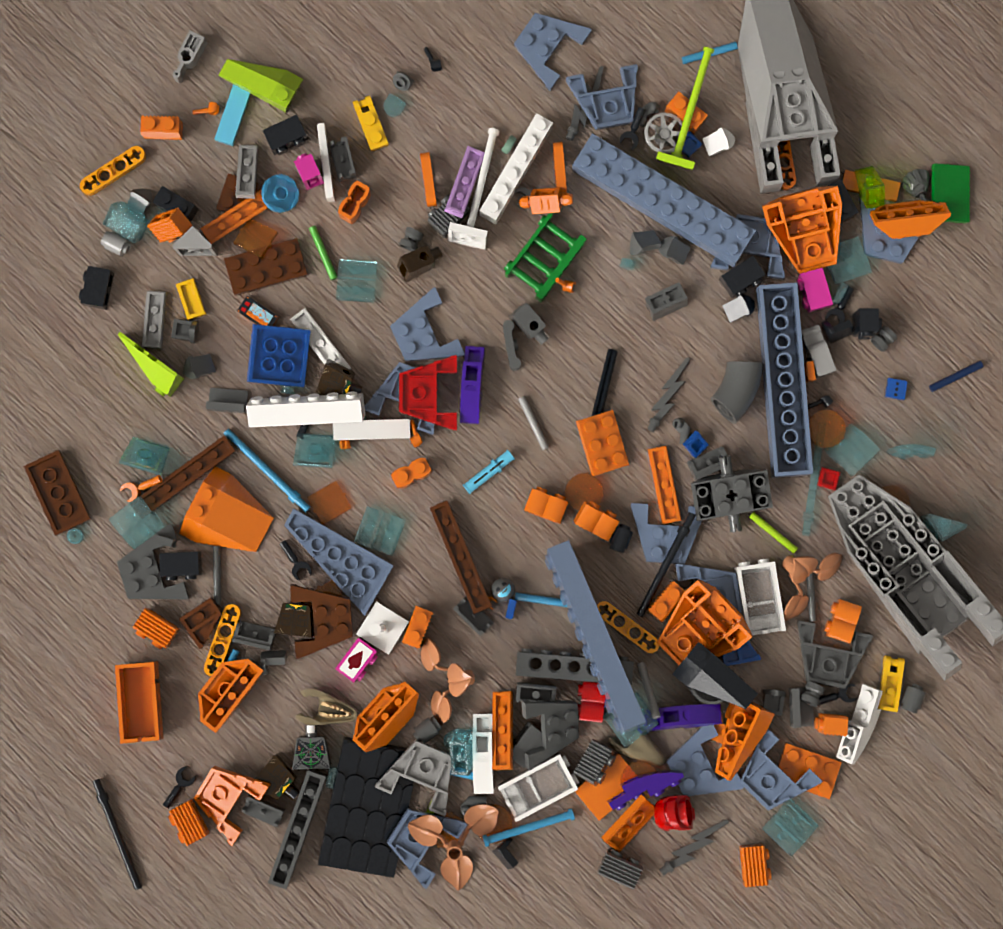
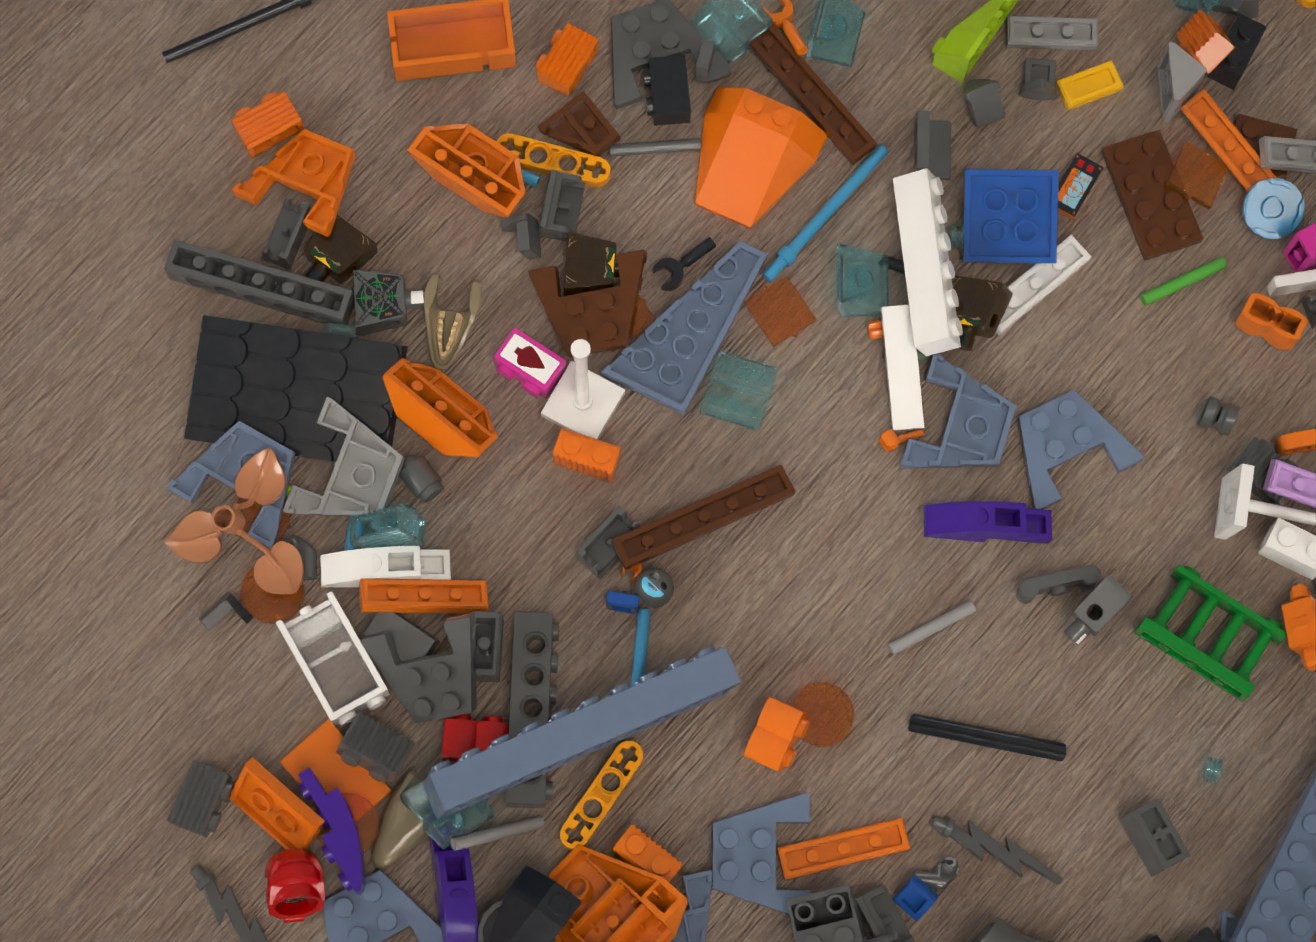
camera: 85 degrees right, 10 degrees down
(177, 789) = (329, 111): black piece -> none
(356, 281) = (1142, 335): clear light blue slope -> none
(412, 264) = (1182, 416): dark brown torso -> none
(417, 470) = (831, 427): orange brick -> none
(419, 392) = (969, 437): red wing -> none
(457, 678) = (502, 511): nougat plant -> none
(506, 457) = (822, 531): medium azure pin -> none
(528, 827) = (267, 646): dark azure bar -> none
(545, 505) = (796, 652): orange brick -> none
(566, 285) = (1167, 670): orange hand -> none
(602, 442) = (907, 739): orange plate -> none
(621, 538) = (749, 777): black brick -> none
(644, 242) = (1253, 796): dark grey tile -> none
(674, 249) = (1244, 847): dark grey tile -> none
(683, 531) = (766, 877): black bar -> none

